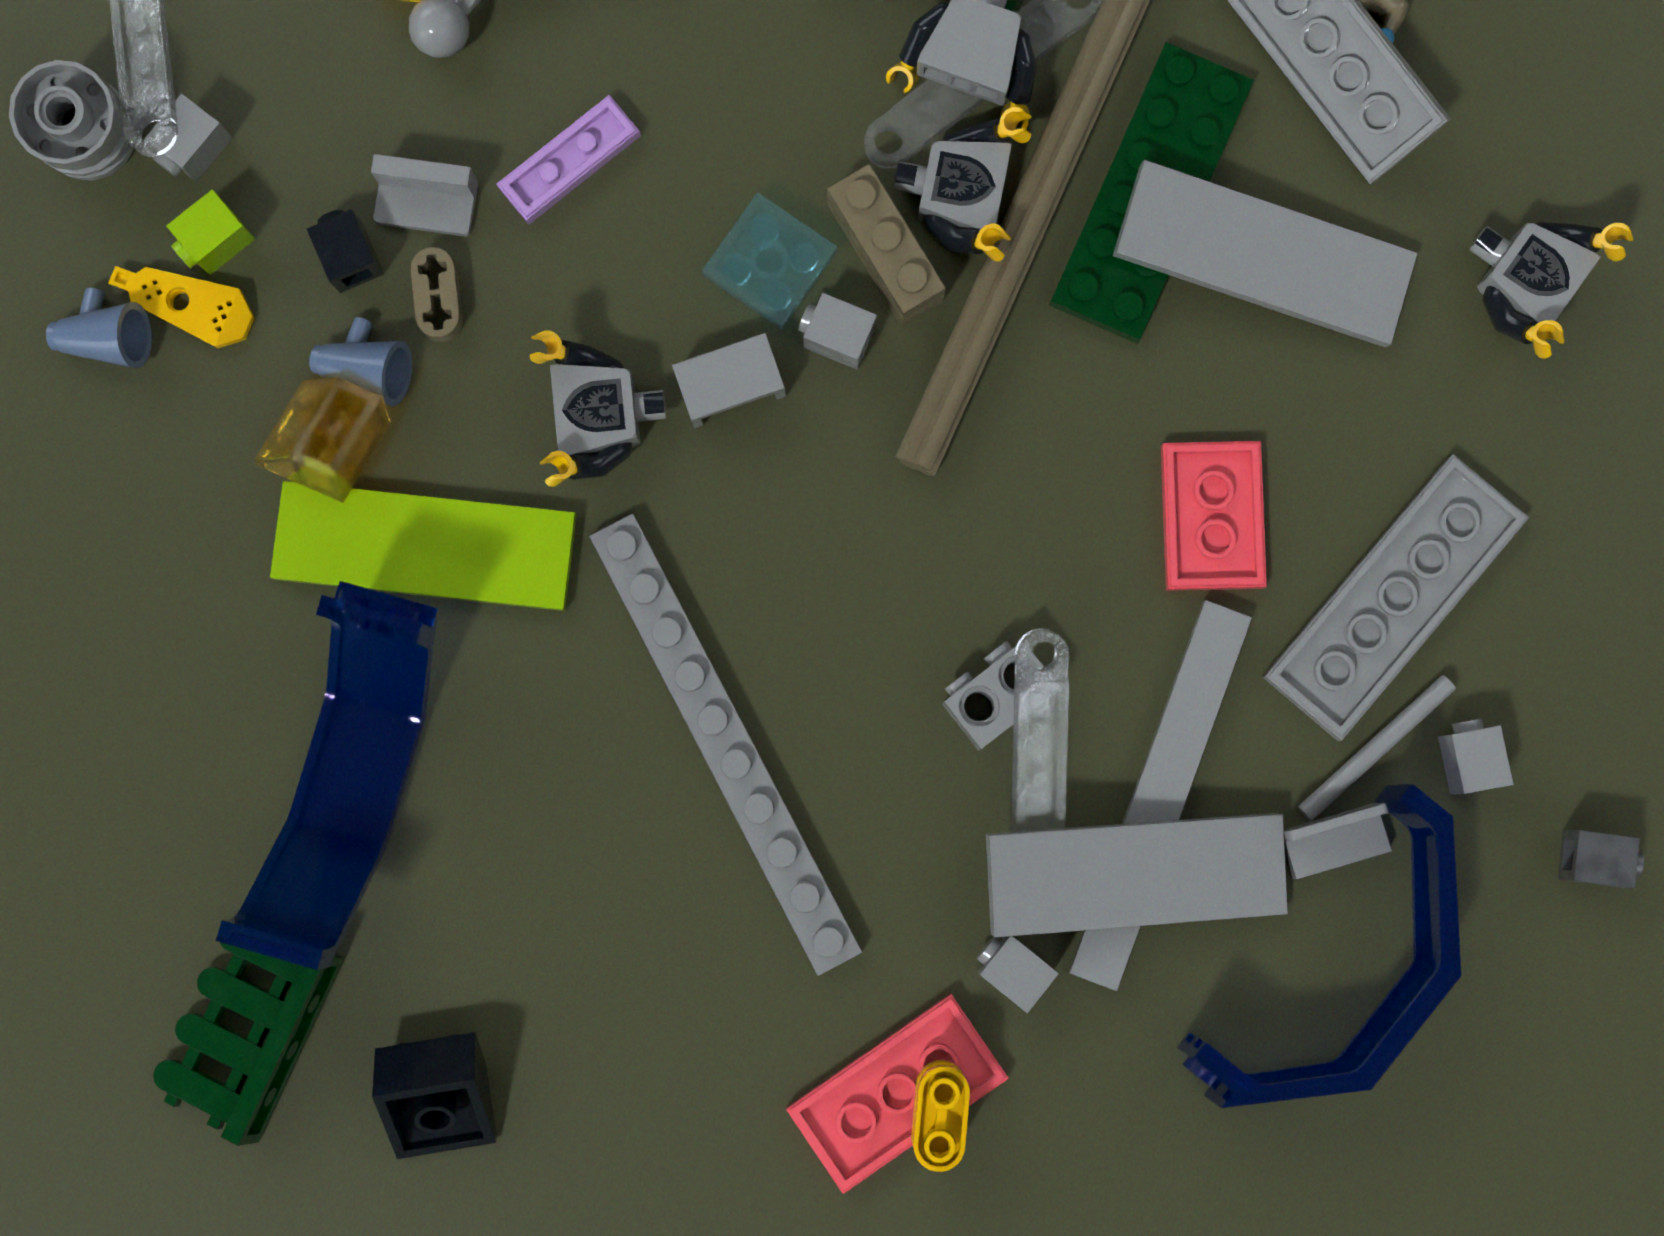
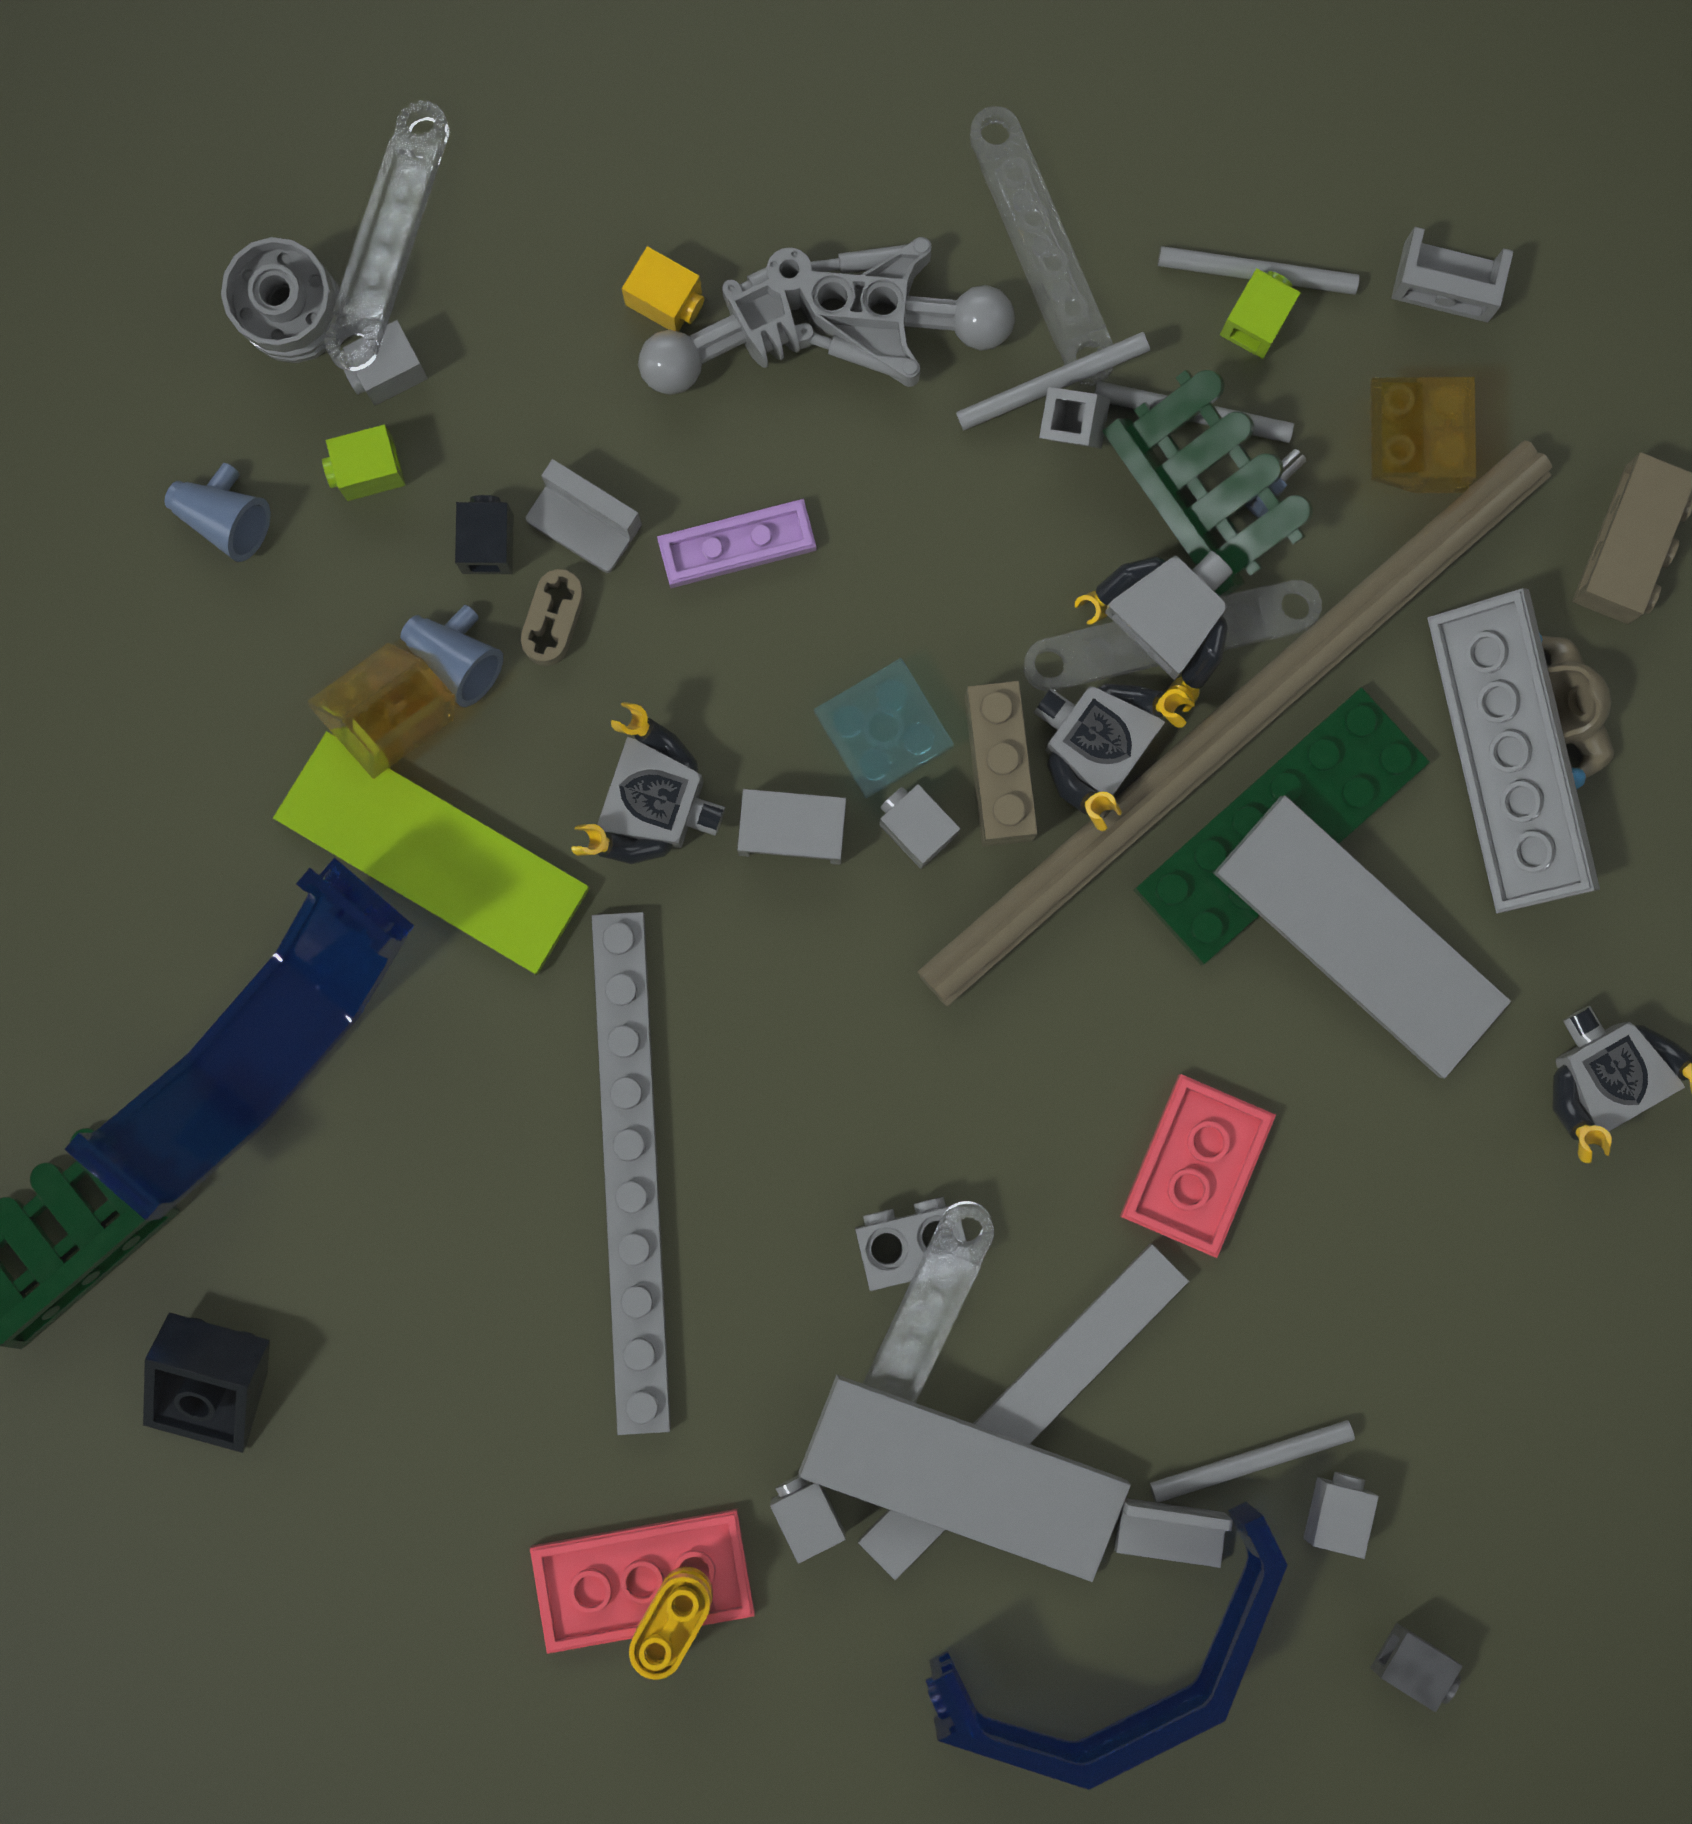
camera: 20 degrees right, 0 degrees up
(203, 305) = (325, 531): yellow piece -> none
(1395, 597) = (1337, 1324): light grey tile -> none

